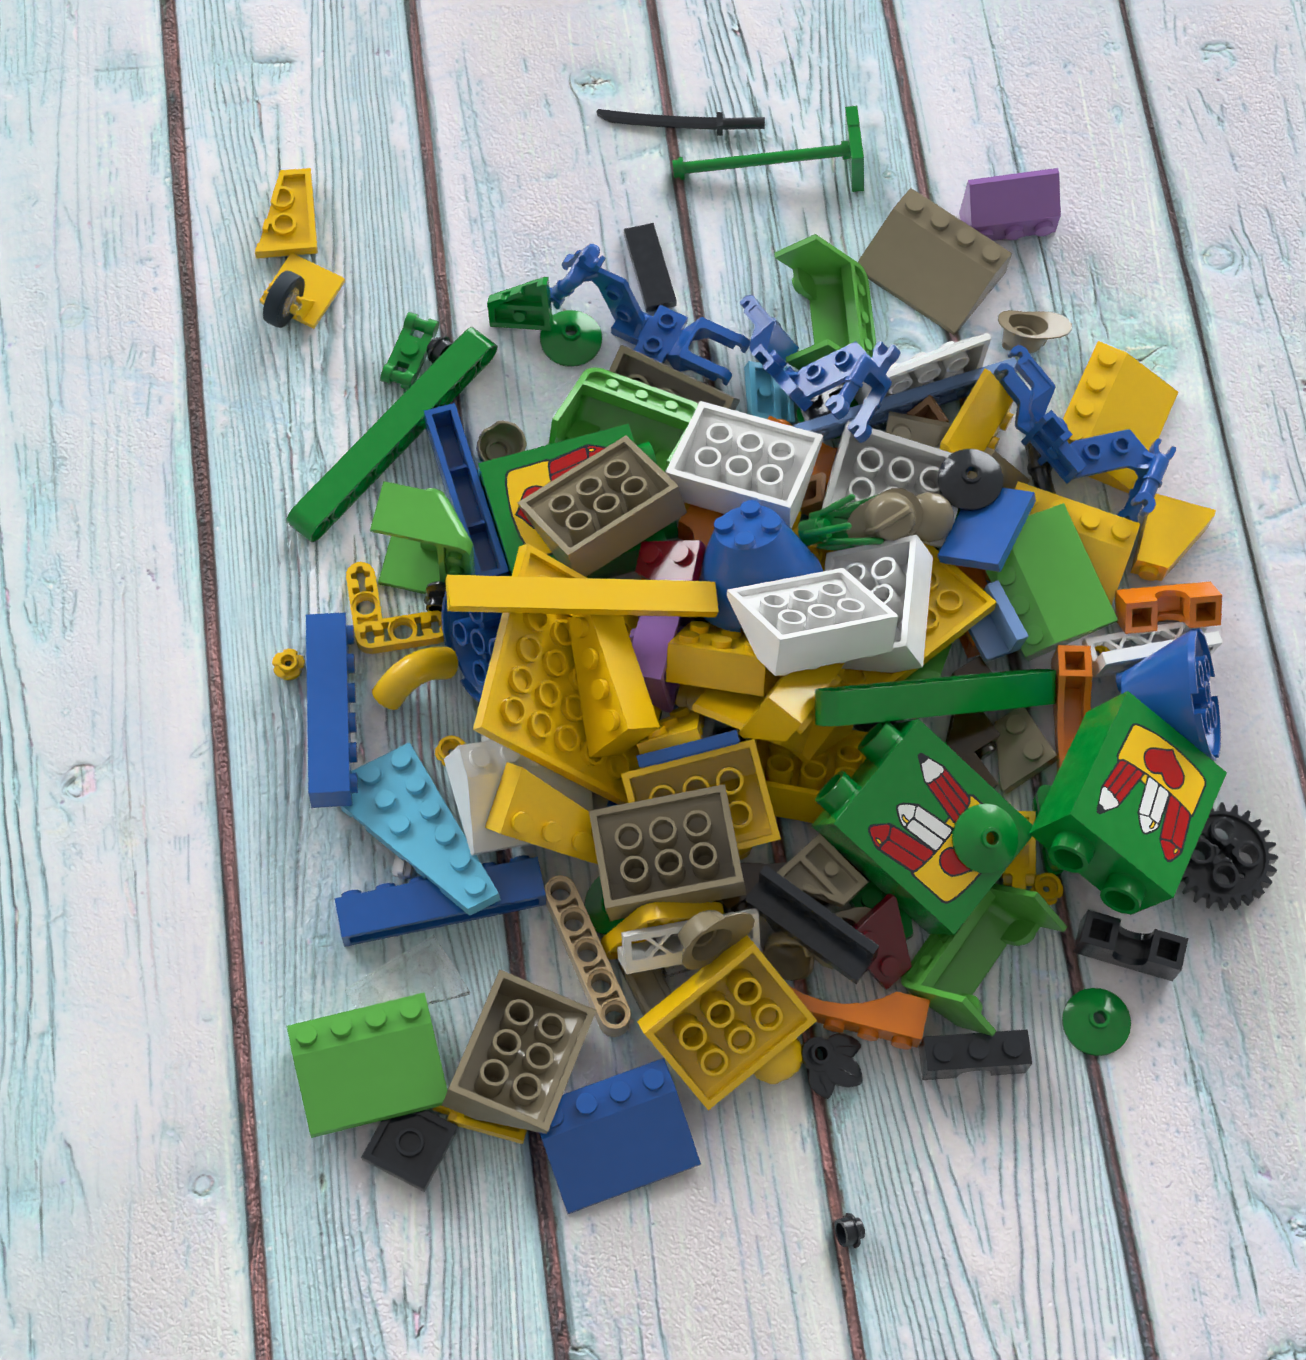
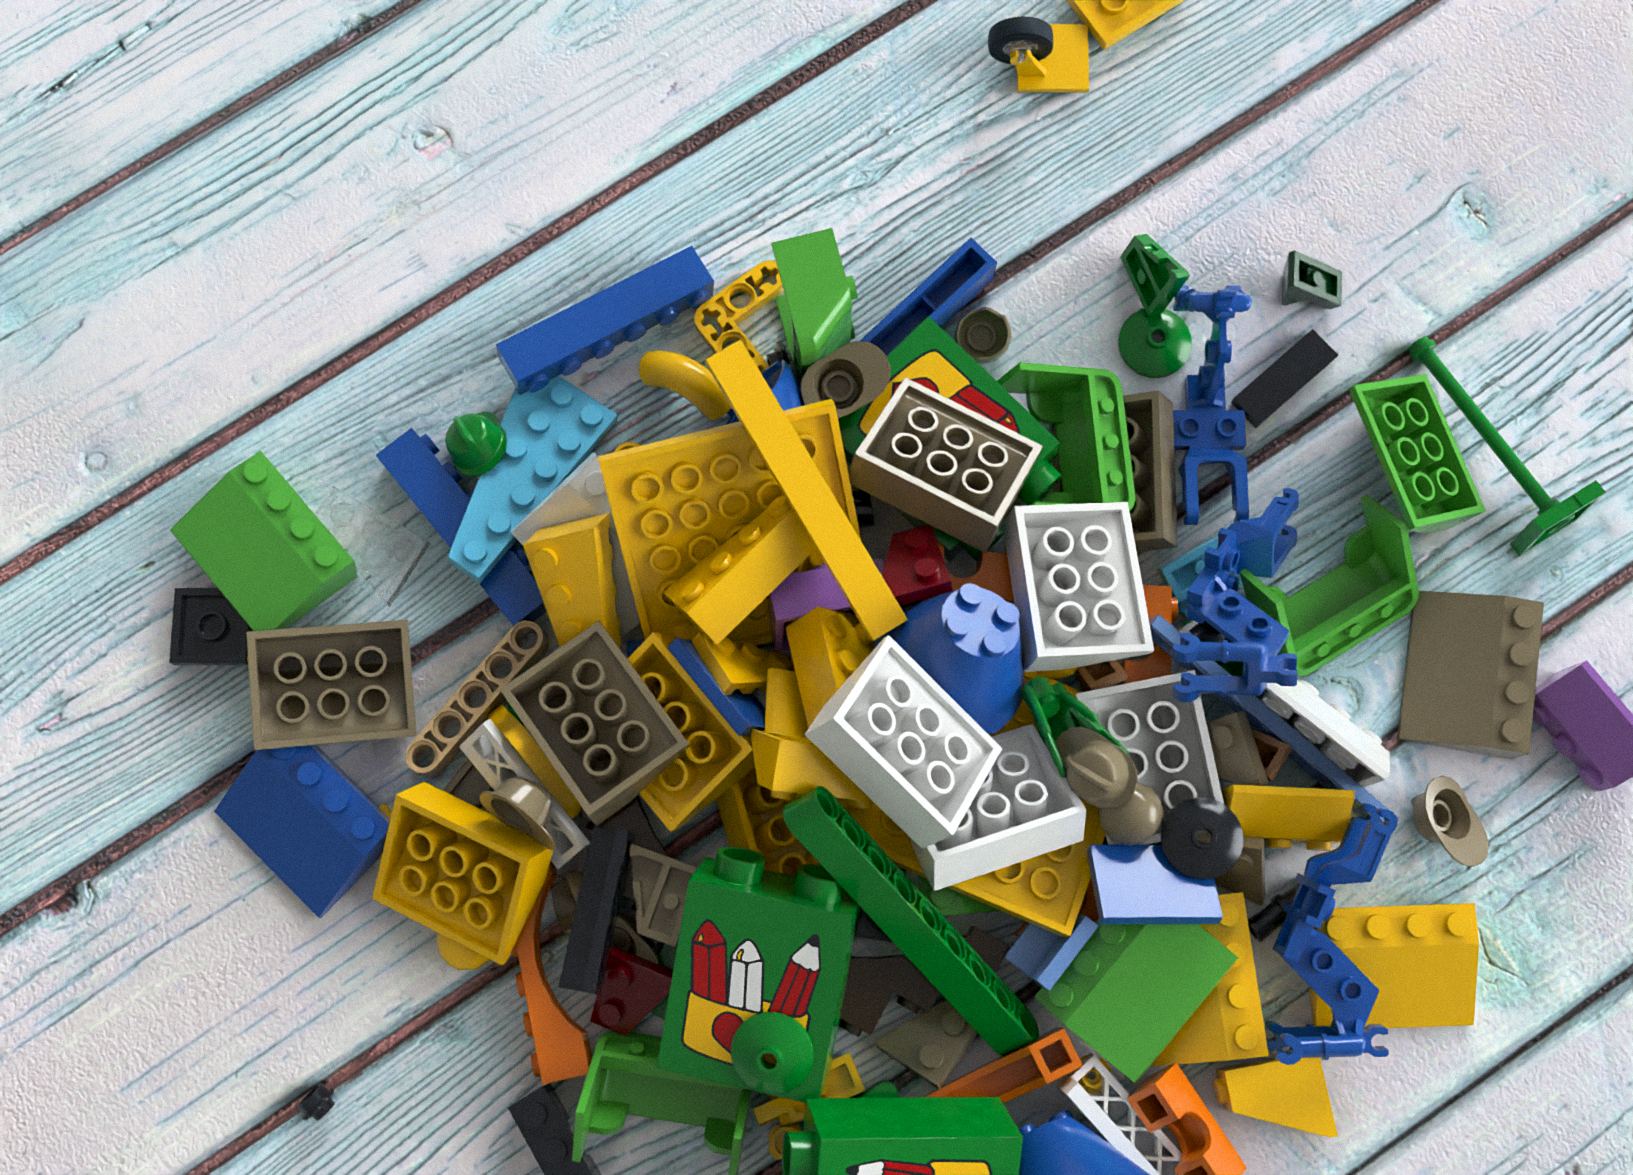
camera: 70 degrees right, 10 degrees up
(288, 672) = (640, 250): yellow plate -> none
(375, 855) = (476, 443): none -> green piece
(390, 435) = (942, 225): green beam -> none
(409, 351) = (1044, 194): green plate -> none
(437, 347) = (1061, 222): black plate -> none
(497, 537) = (848, 377): none -> dark tan piece
(586, 211) = (1311, 281): none -> slope
(684, 122) = (1503, 361): black sword -> none
(761, 204) = (1417, 453): none -> bright green slope
(835, 1067) = (485, 1006): black plate -> none

